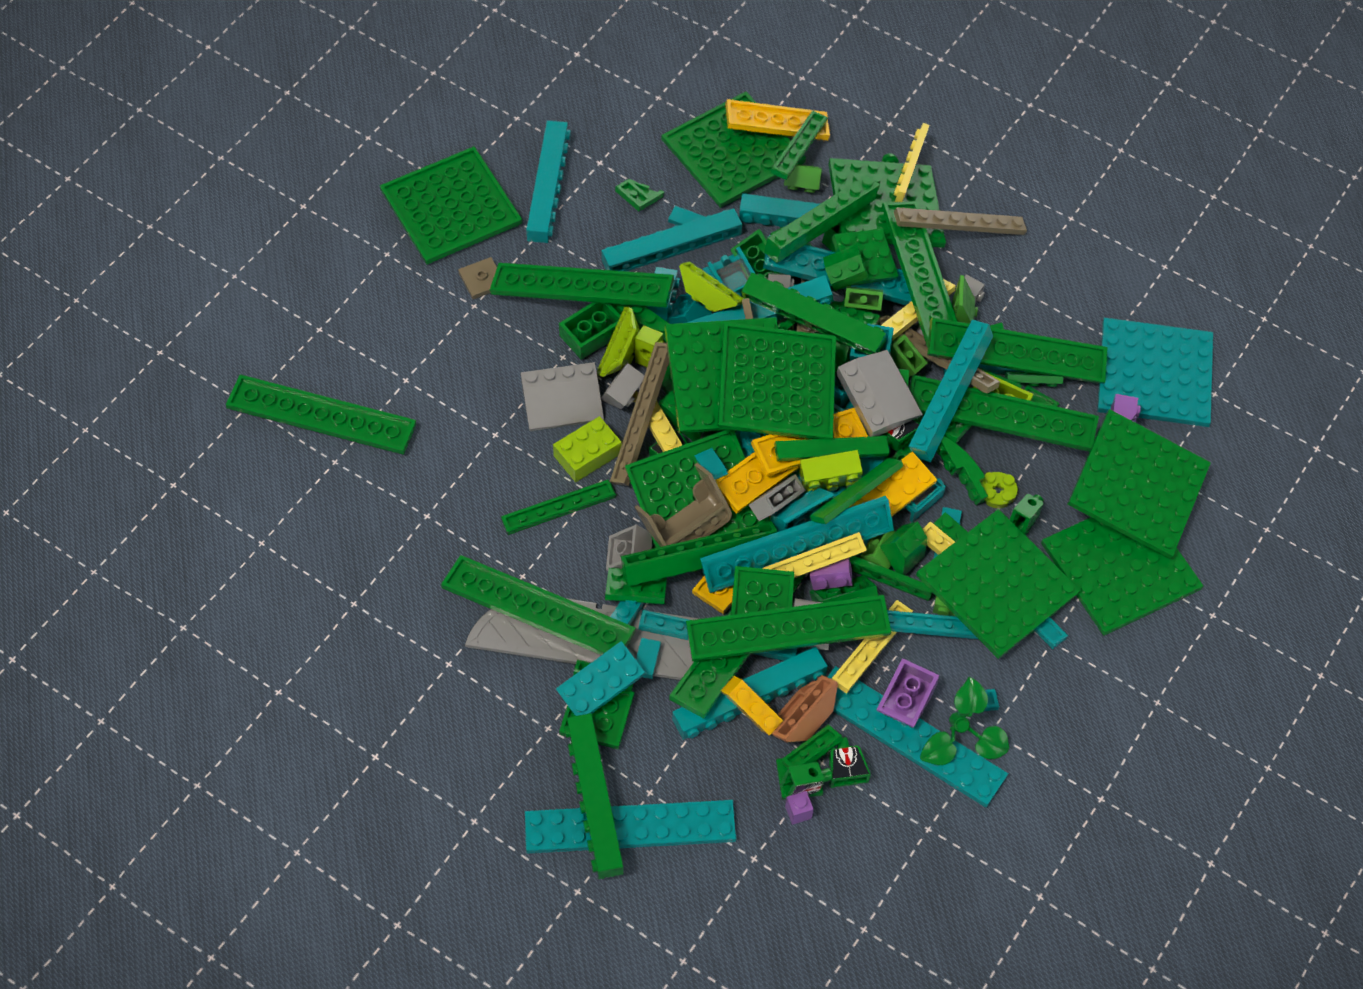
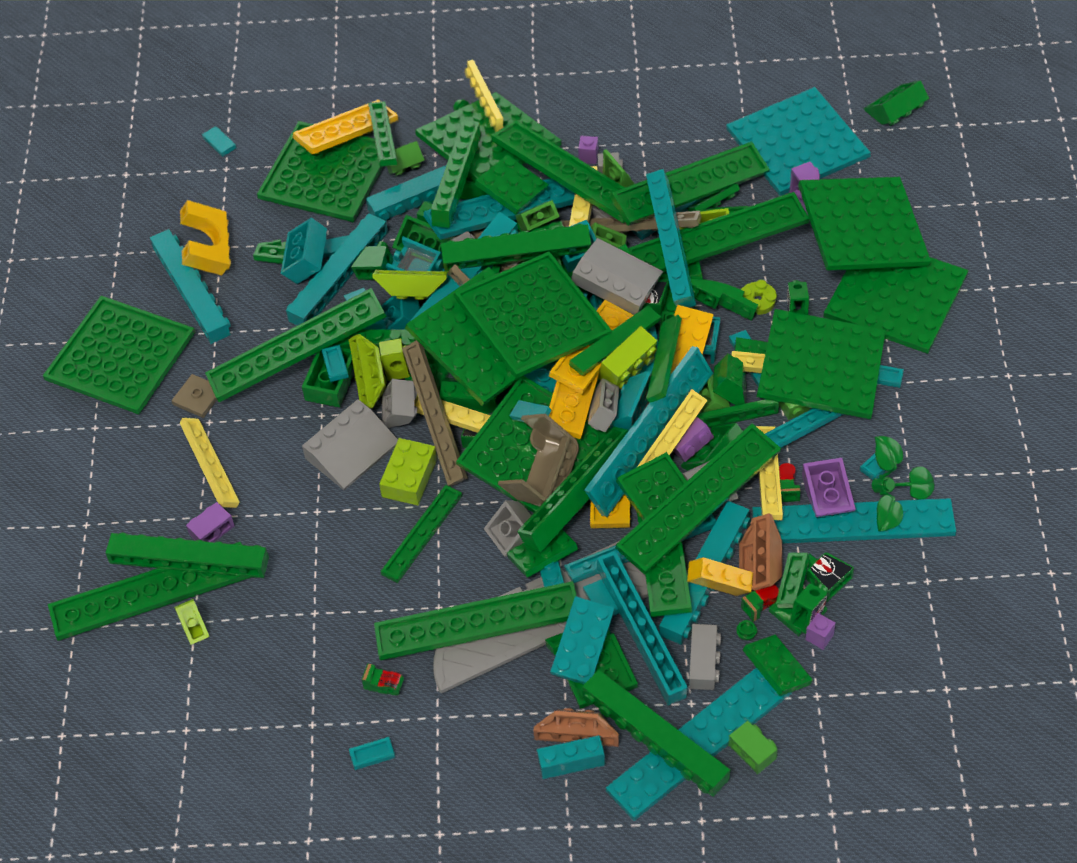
camera: 30 degrees left, 5 degrees down
(329, 460) = (191, 621): none -> lime slope
(366, 404) = (187, 555): none -> green brick
(377, 657) = (371, 753): none -> teal tile
(404, 391) = (210, 524): none -> medium lavender brick
(429, 604) = (381, 680): none -> green leg
(445, 339) = (209, 462): none -> light yellow plate
(517, 768) = (571, 757): none -> teal brick
(541, 746) = (573, 725): none -> nougat wedge
(599, 320) = (335, 363): none -> teal tile
(607, 140) = (213, 223): none -> yellow arch
(656, 208) = (304, 251): none -> teal brick
(656, 703) = (642, 628): none -> teal brick
(664, 862) = (753, 746): none -> bright green brick
(671, 70) = (219, 141): none -> teal tile
(688, 762) = (704, 657): none -> light grey brick
(703, 251) = (372, 259): none -> green torso
(740, 810) = (777, 665): none -> green plate
(742, 764) = (746, 630): none -> green plate
(772, 747) = (758, 601): none -> leg
(845, 267) = (507, 197): green slope -> none
(879, 666) = (789, 491): none -> leg
(959, 221) = (559, 116): dark tan plate -> none
(963, 264) = (588, 149): none -> medium lavender brick
(1275, 393) = (898, 103): none -> green slope

